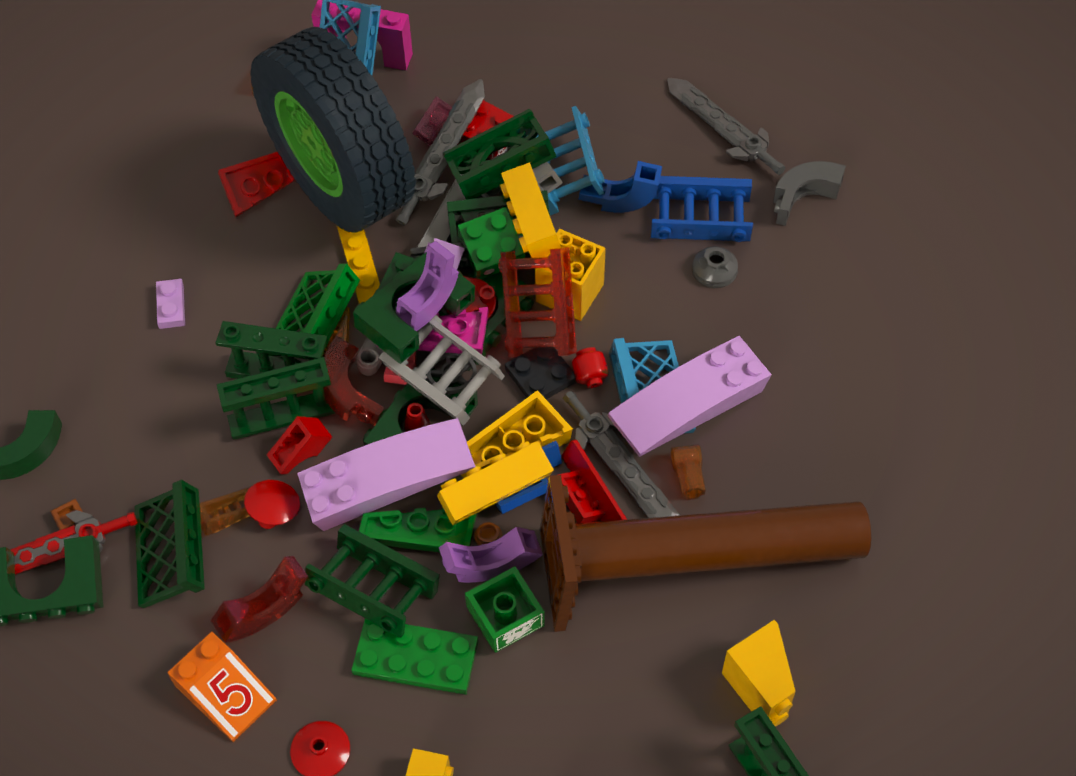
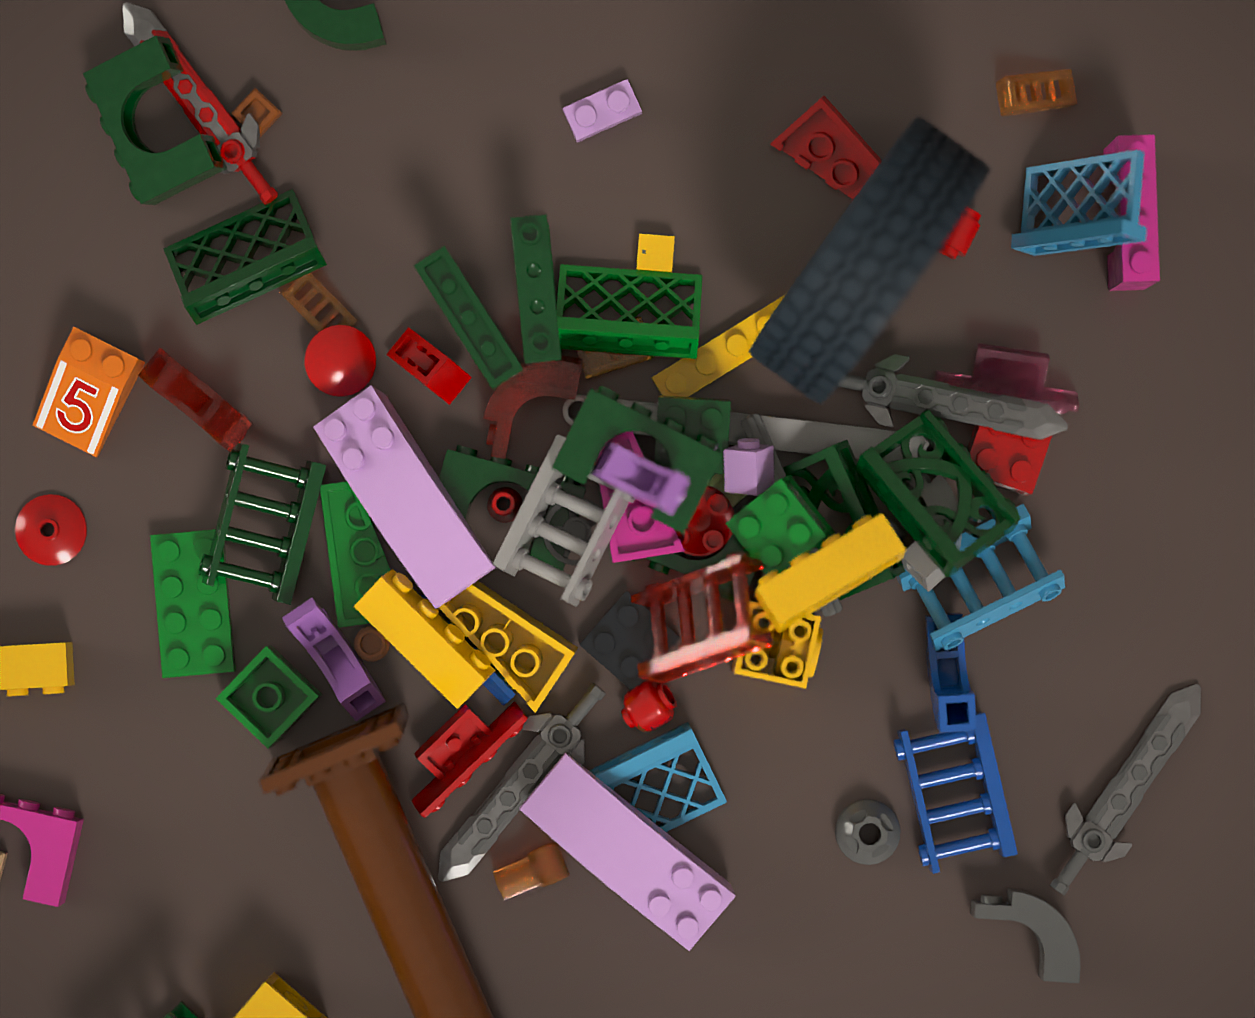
camera: 75 degrees right, 30 degrees up
(279, 295) = (655, 253): none -> yellow tile

